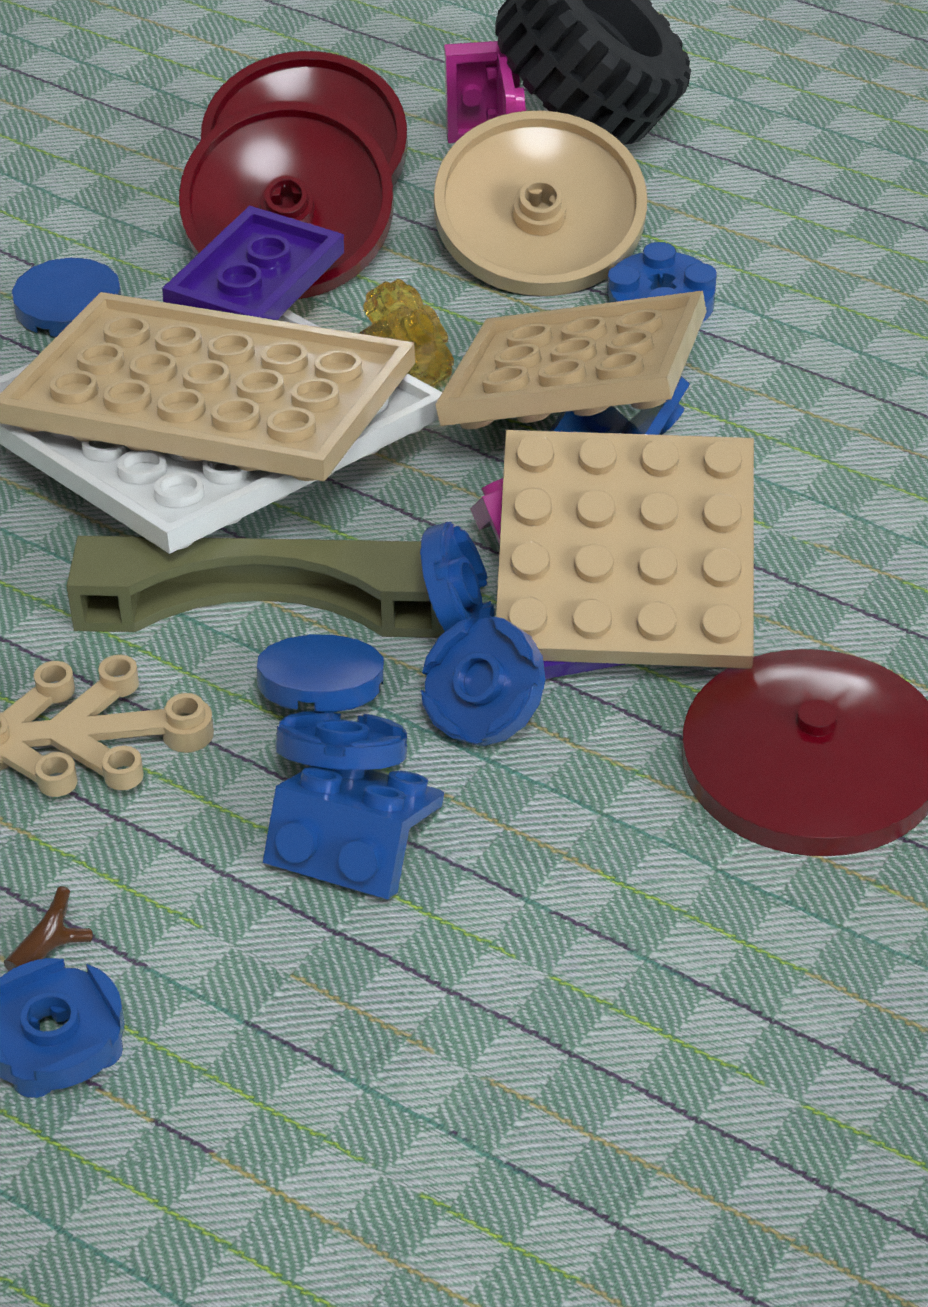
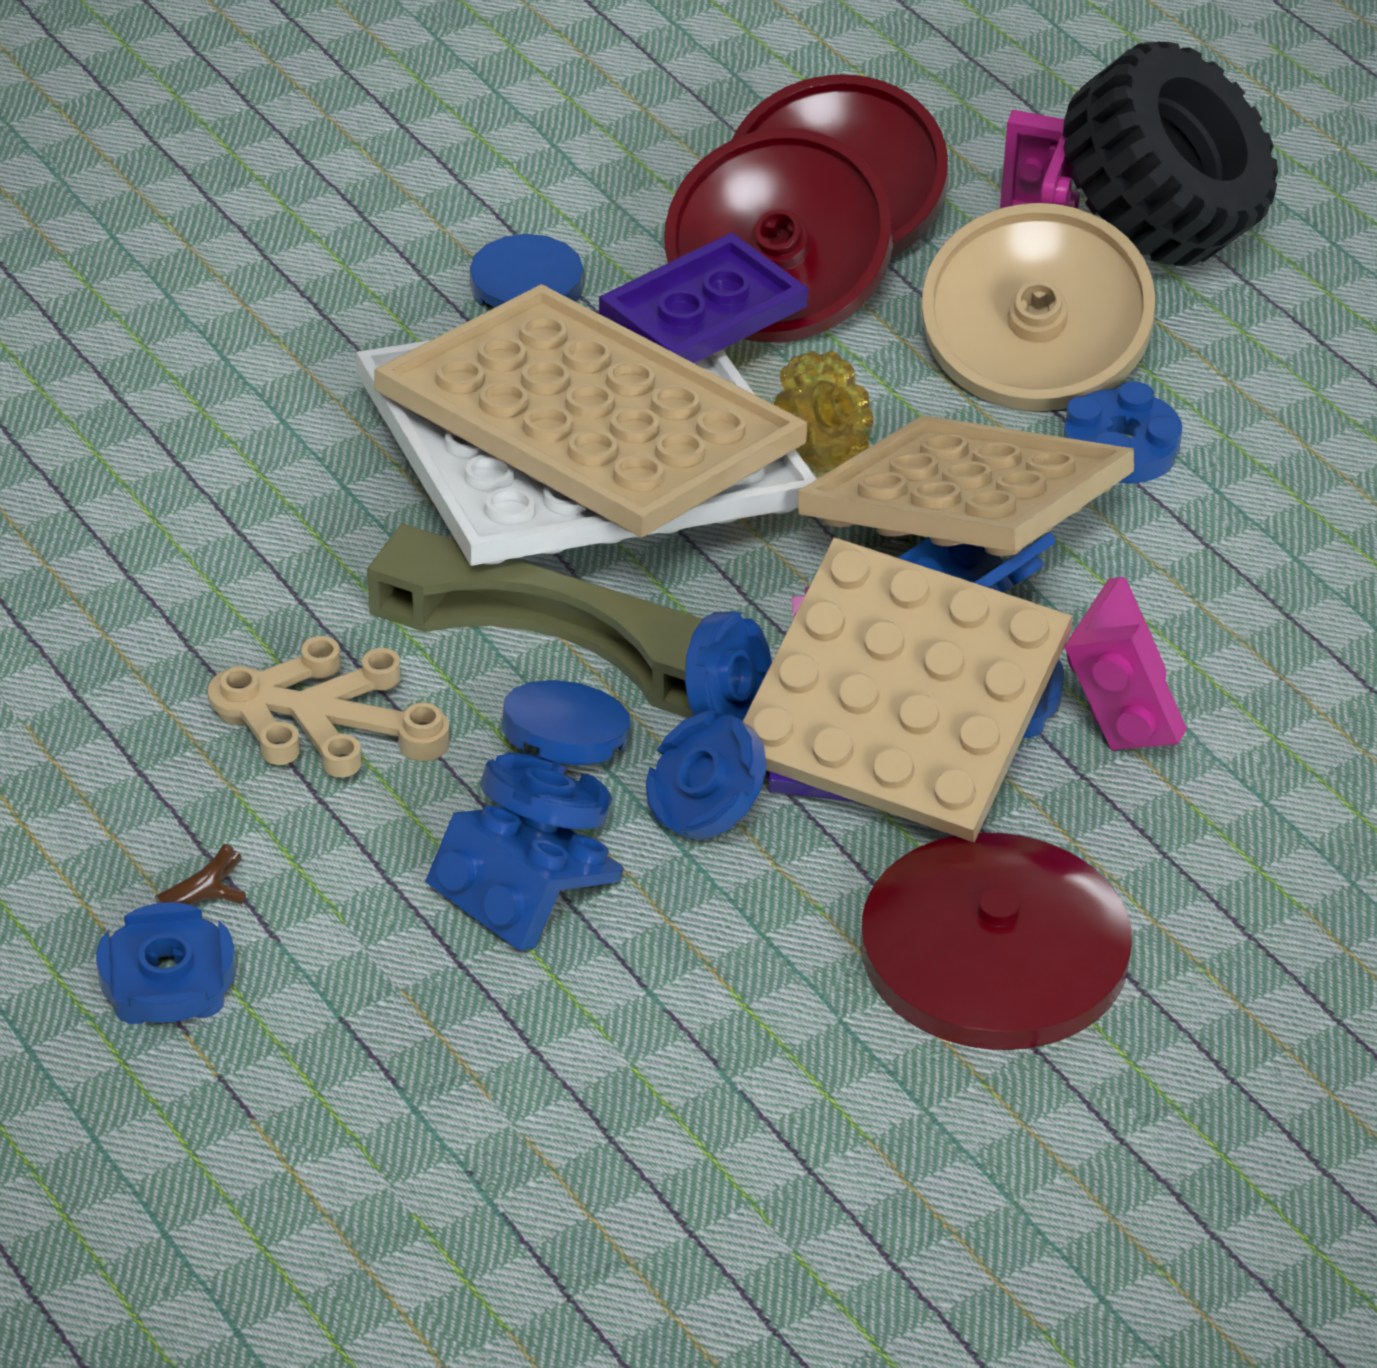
camera: 20 degrees right, 0 degrees up
(806, 482) = (1123, 672): none -> dark pink bracket

